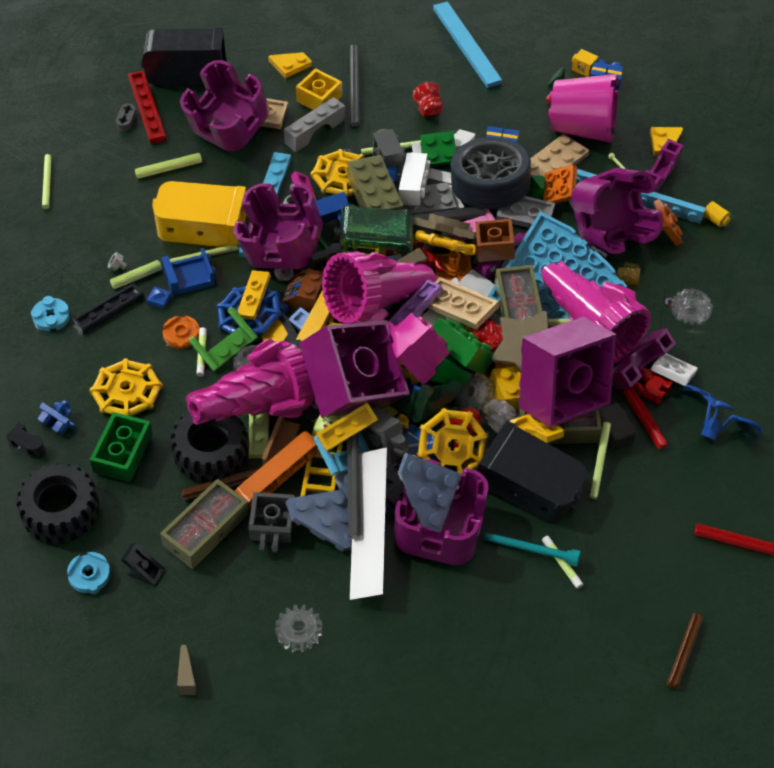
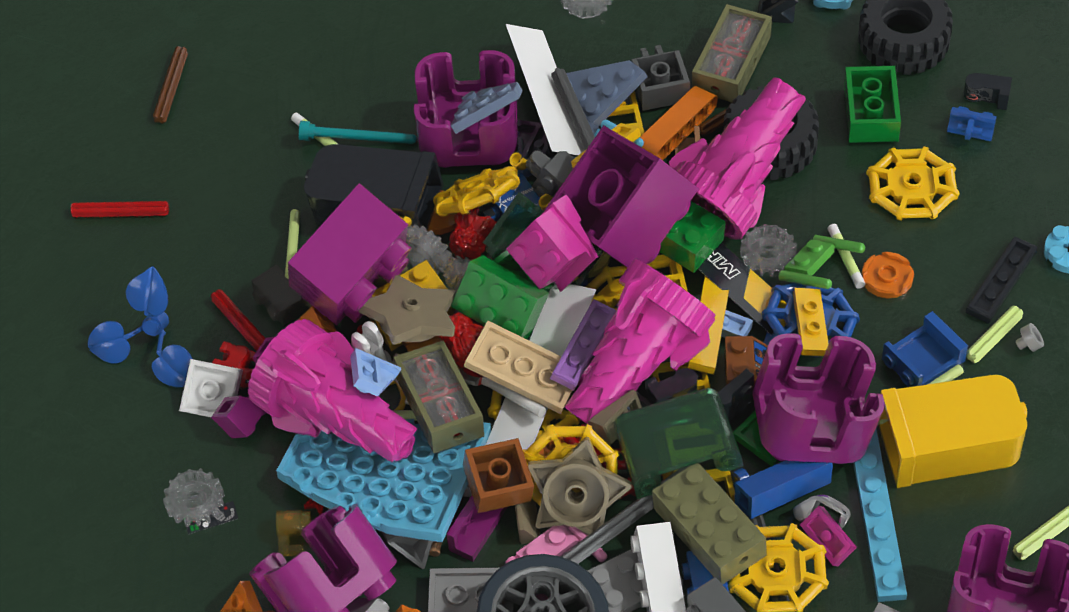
camera: 170 degrees right, 0 degrees up
(159, 297) = (945, 309): blue tile -> none
(565, 297) = (371, 373): none -> light blue wing

